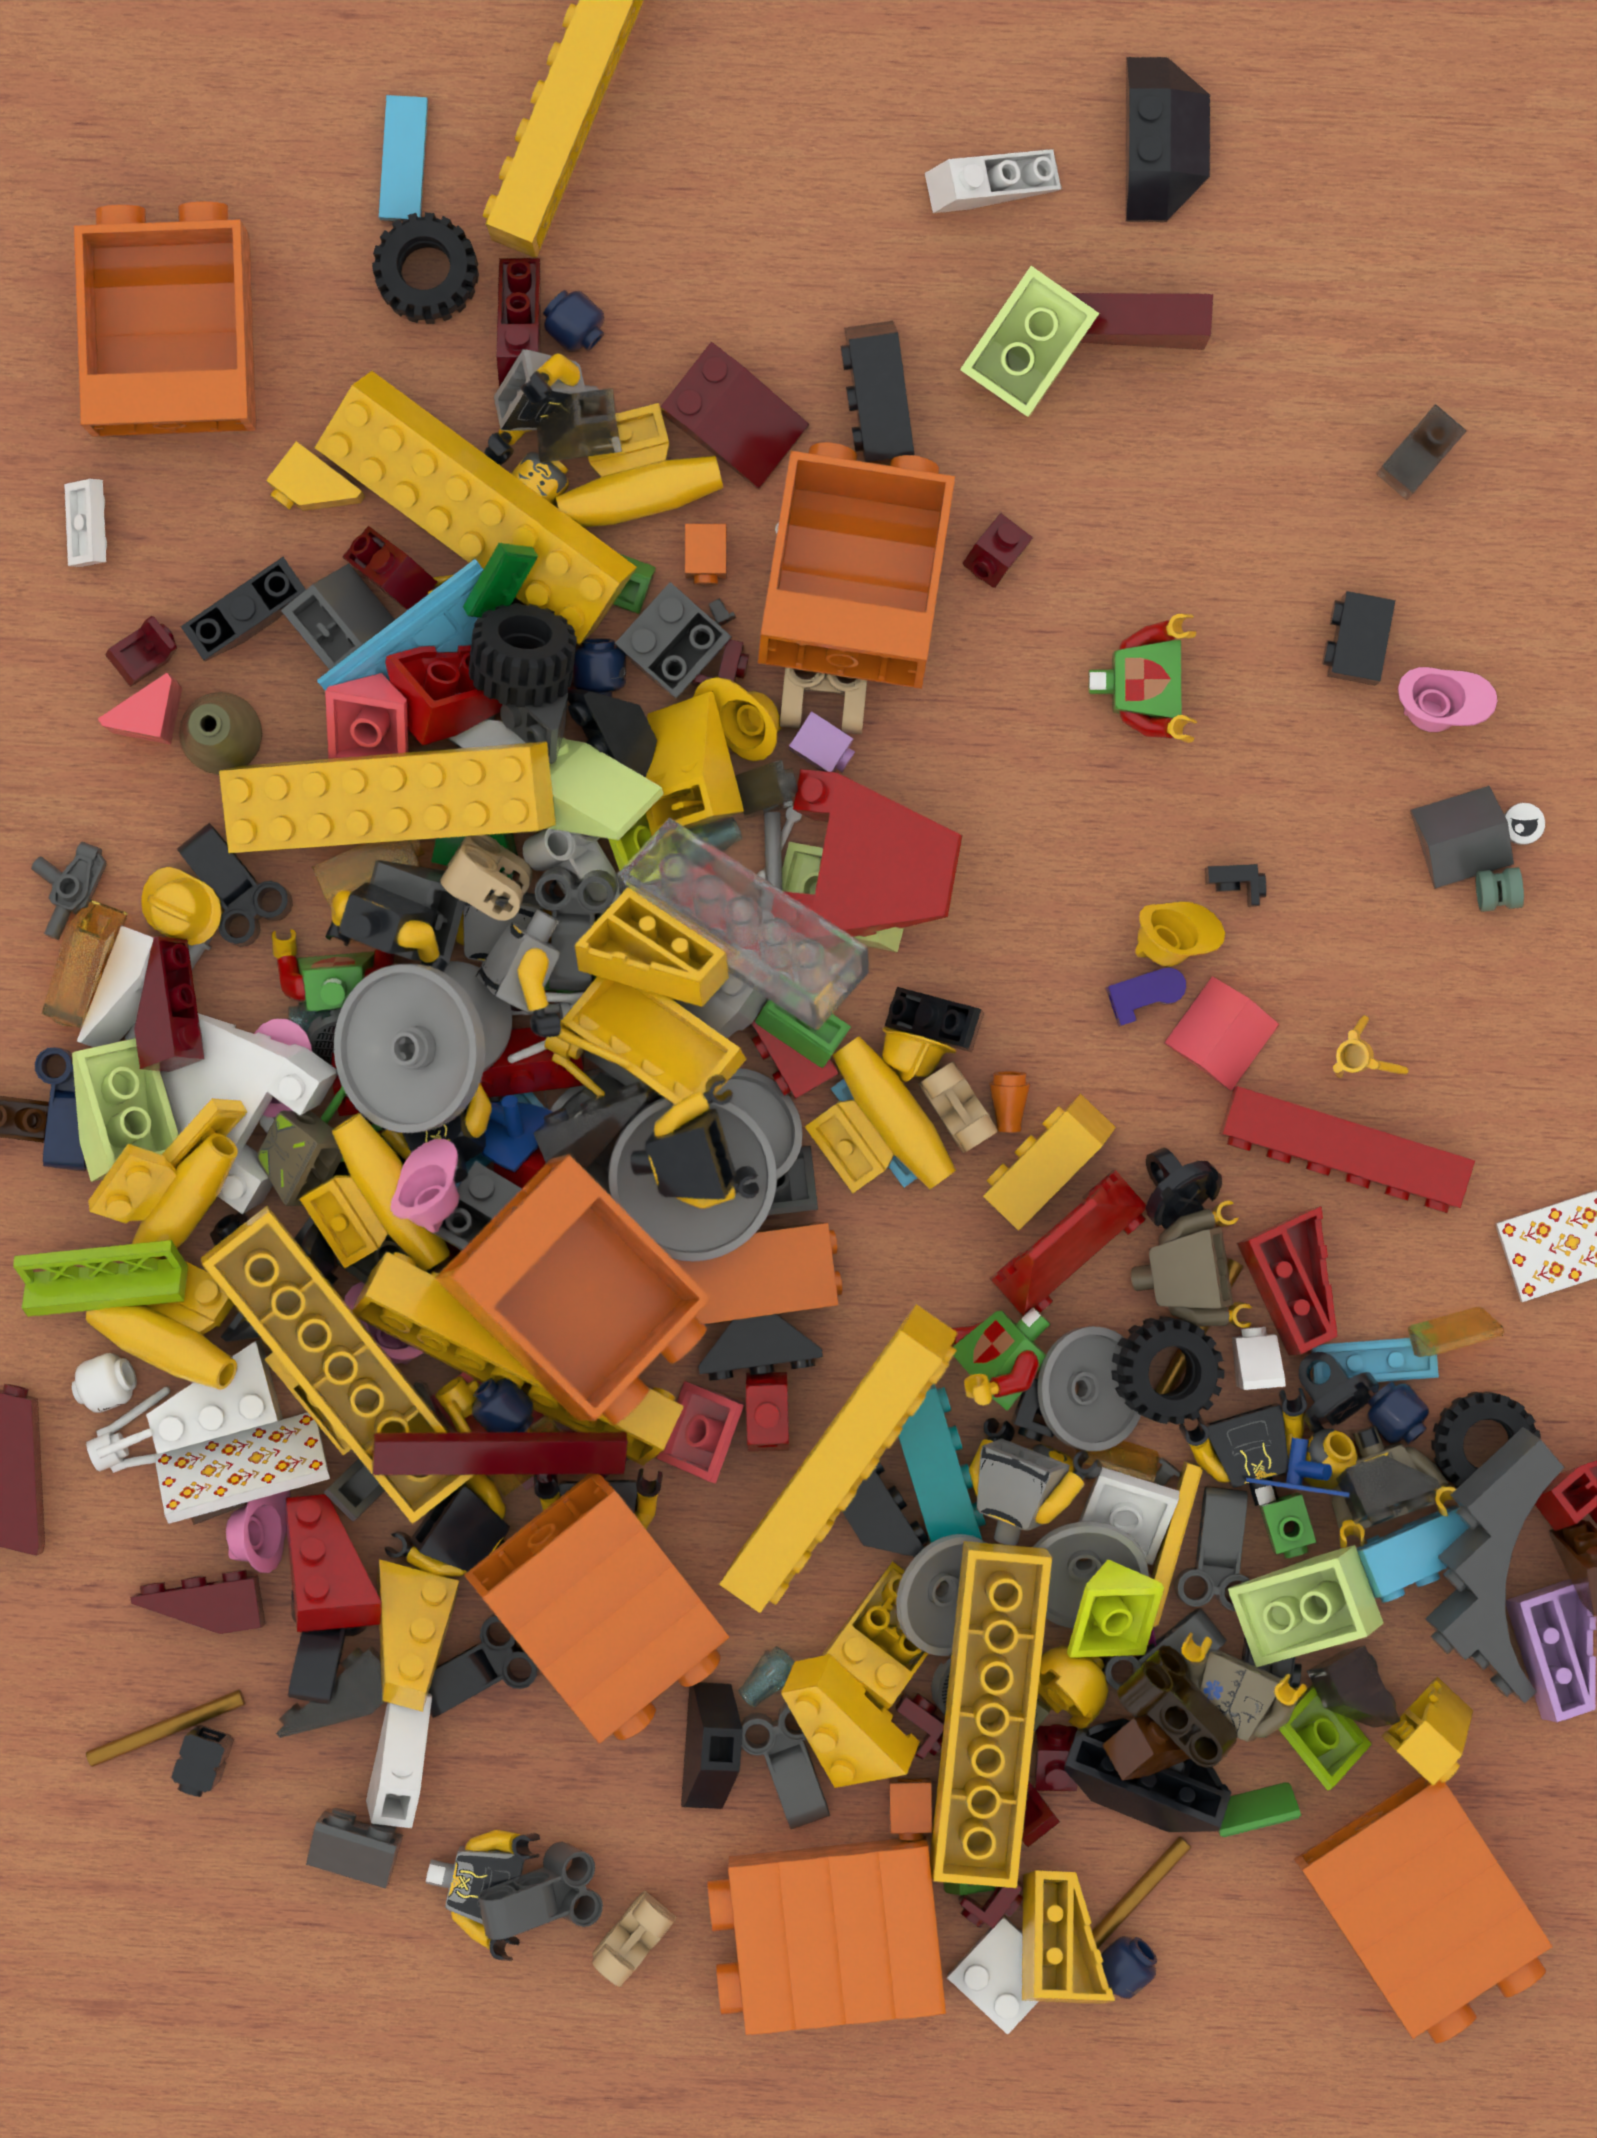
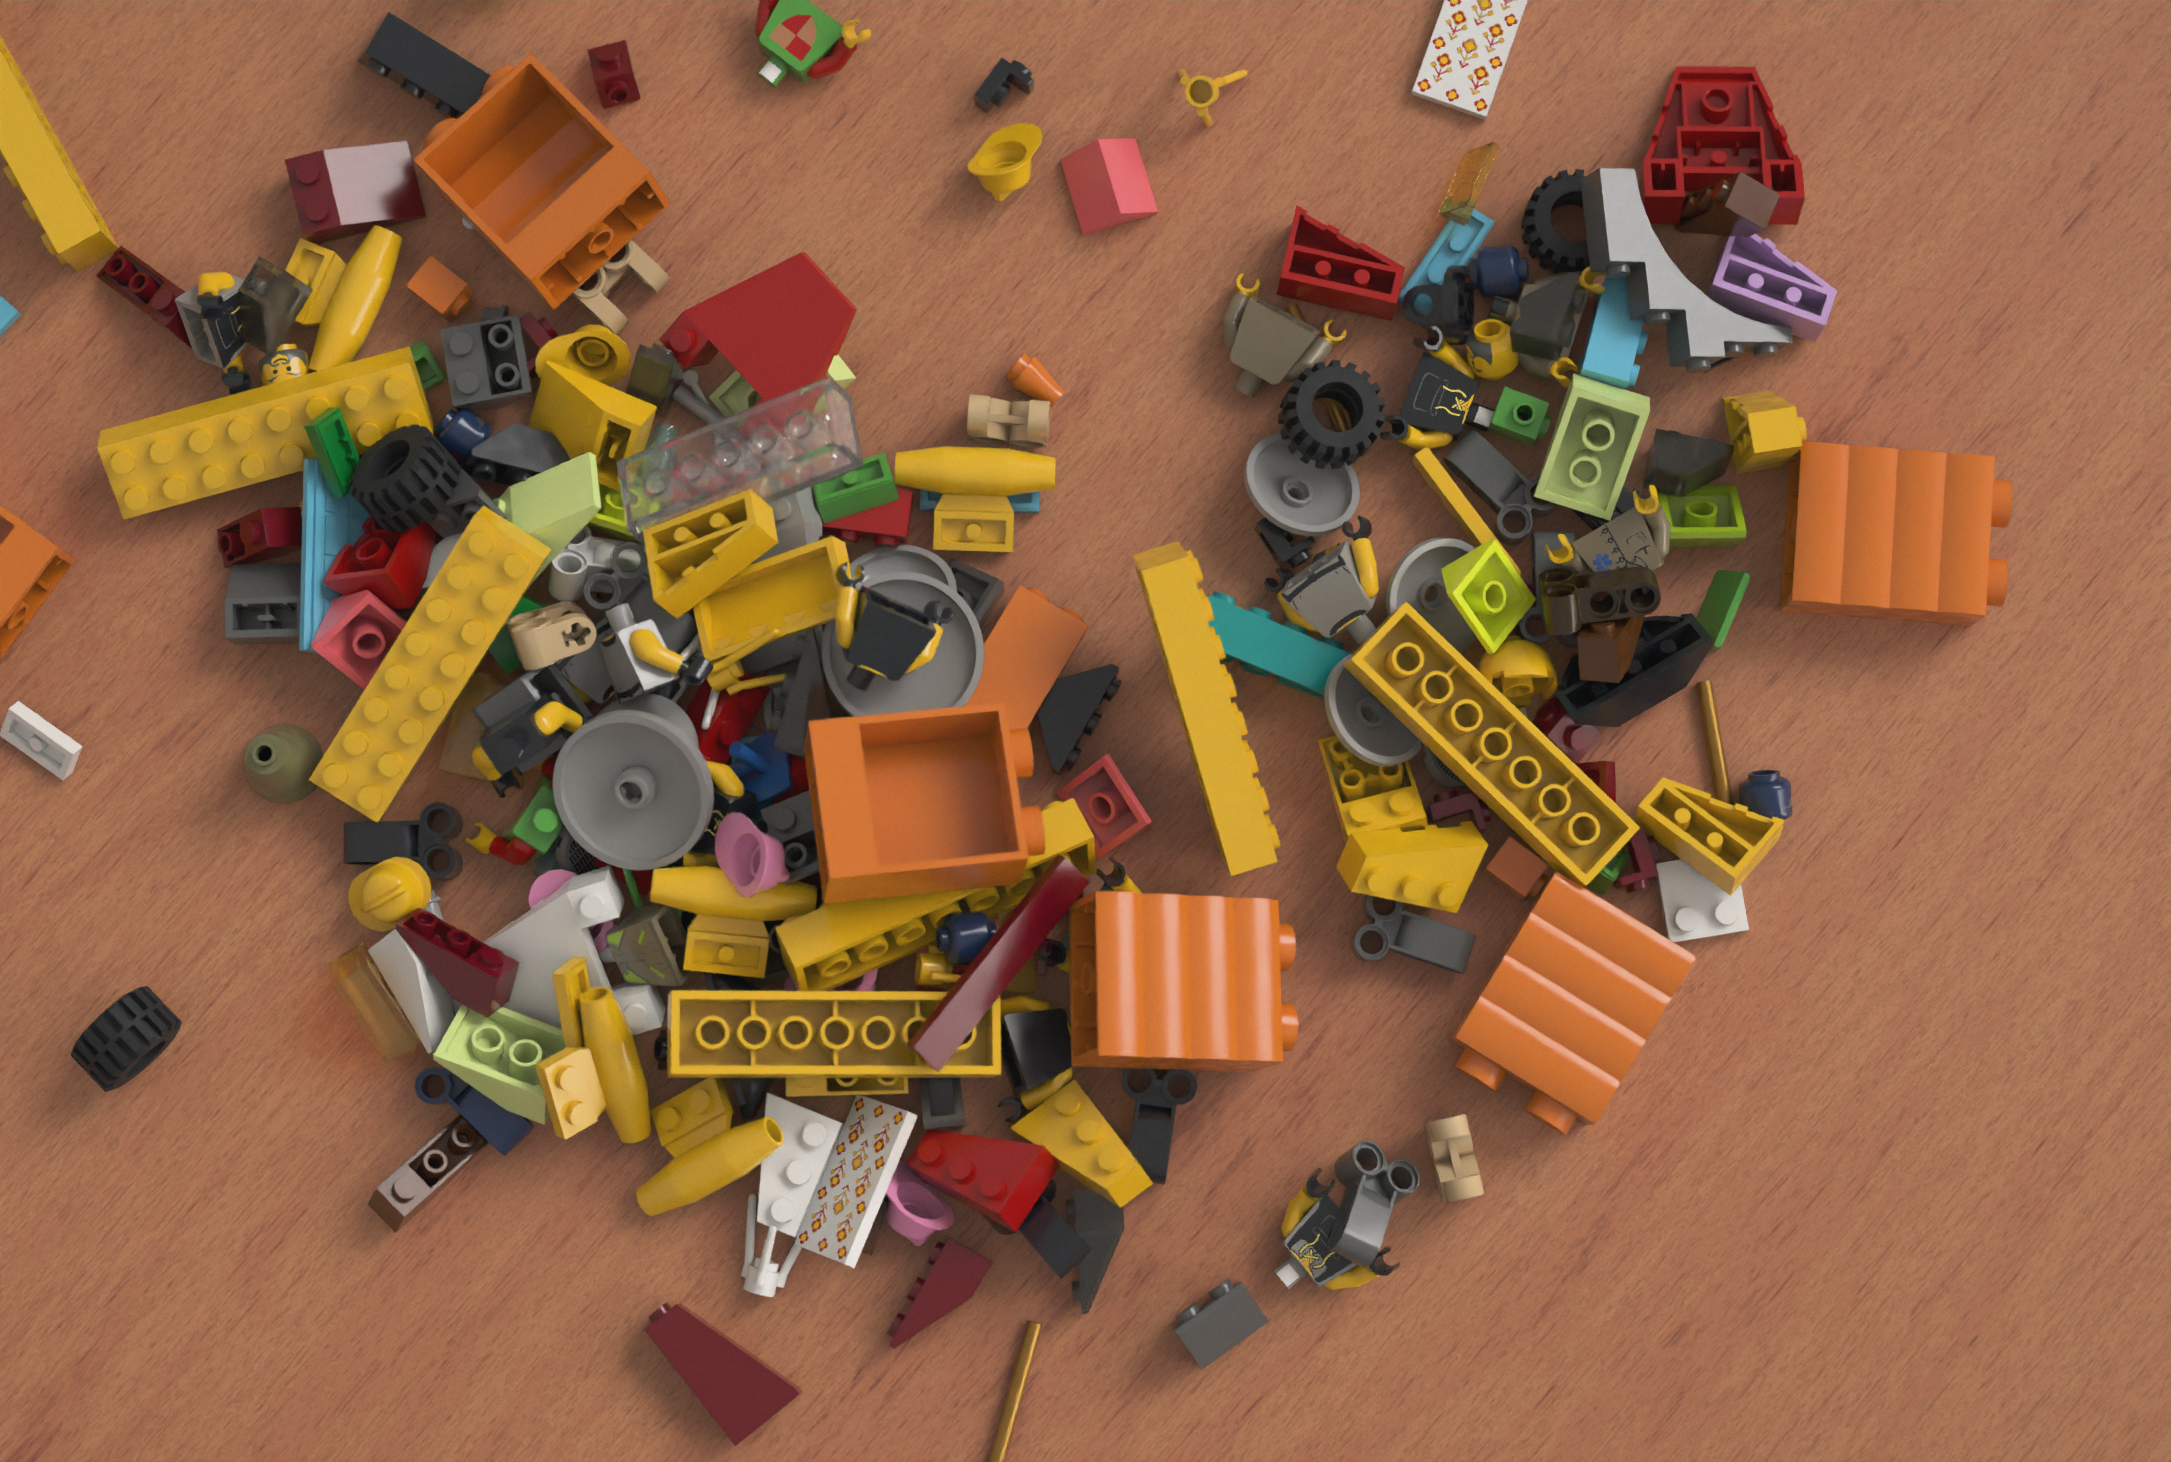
camera: 50 degrees left, 5 degrees down
(73, 886) = (309, 967): dark grey piece -> none
(102, 1281) = (629, 1176): lime fence -> none
(104, 1382) = (707, 1238): white head -> none
(142, 651) = (173, 772): dark red bracket -> none
(148, 713) = (221, 804): coral slope -> none
(201, 1760) = (1060, 1390): black brick -> none
(244, 611) = (204, 668): black slope -> none
(310, 483) = (149, 545): yellow slope -> none
(398, 1766) = (1181, 1236): white slope -> none
(418, 234) = (31, 315): black tyre -> none
(574, 321) = (187, 253): dark blue head -> none
(711, 1746) = (1352, 985): black slope -> none
(767, 1412) = (1130, 744): red torso -> none
(767, 1676) = (1332, 900): clear light blue cone -> none
(822, 744) = (653, 313): lavender brick -> none
(878, 1518) = (1278, 722): black slope -> none
(912, 1054) = (940, 419): yellow piece -> none
(935, 1018) = (929, 387): black slope -> none
(1000, 1356) = (1224, 529): torso -> none
(1048, 1161) = (1103, 386): yellow wedge -> none
(1070, 1244) = (1178, 418): red wedge -> none
(1127, 1459) = (1377, 503): clear yellow slope -> none
(1132, 1506) = (1414, 519): white plate -> none
(1159, 986) = (1036, 204): dark purple leg -> none
(1165, 1472) = (1409, 482): dark grey piece -> none
(1178, 1187) = (1199, 302): black tile -> none
(1257, 1360) = (1377, 344): white slope -> none
(1300, 1468) = (1483, 372): blue shield -> none
(1347, 1148) = (1268, 157): red brick -> none

